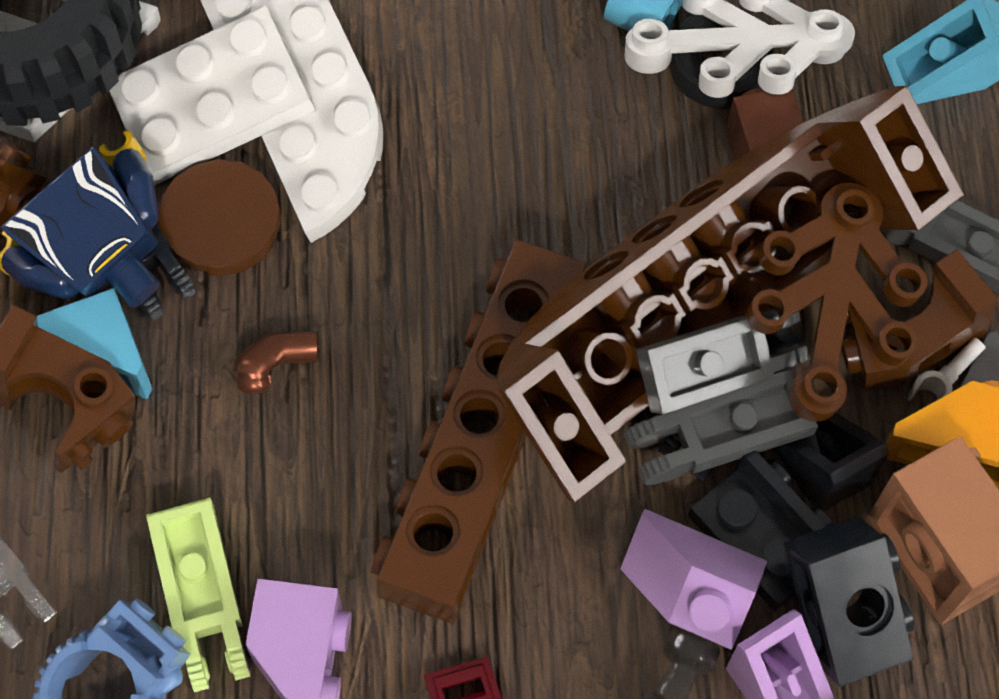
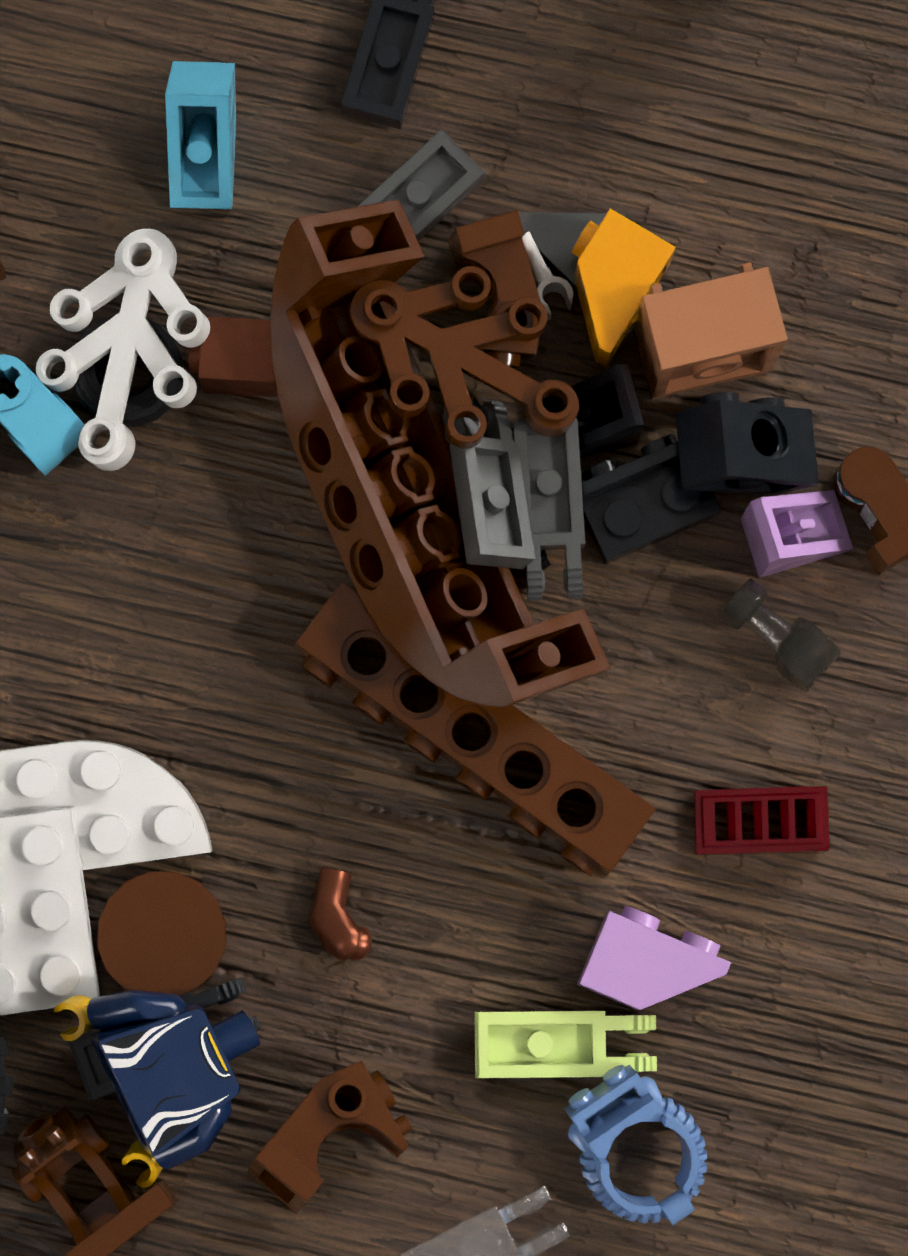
camera: 75 degrees left, 15 degrees up
(103, 330) = (274, 1088): medium azure slope -> none
(693, 577) = (682, 579): lavender slope -> none

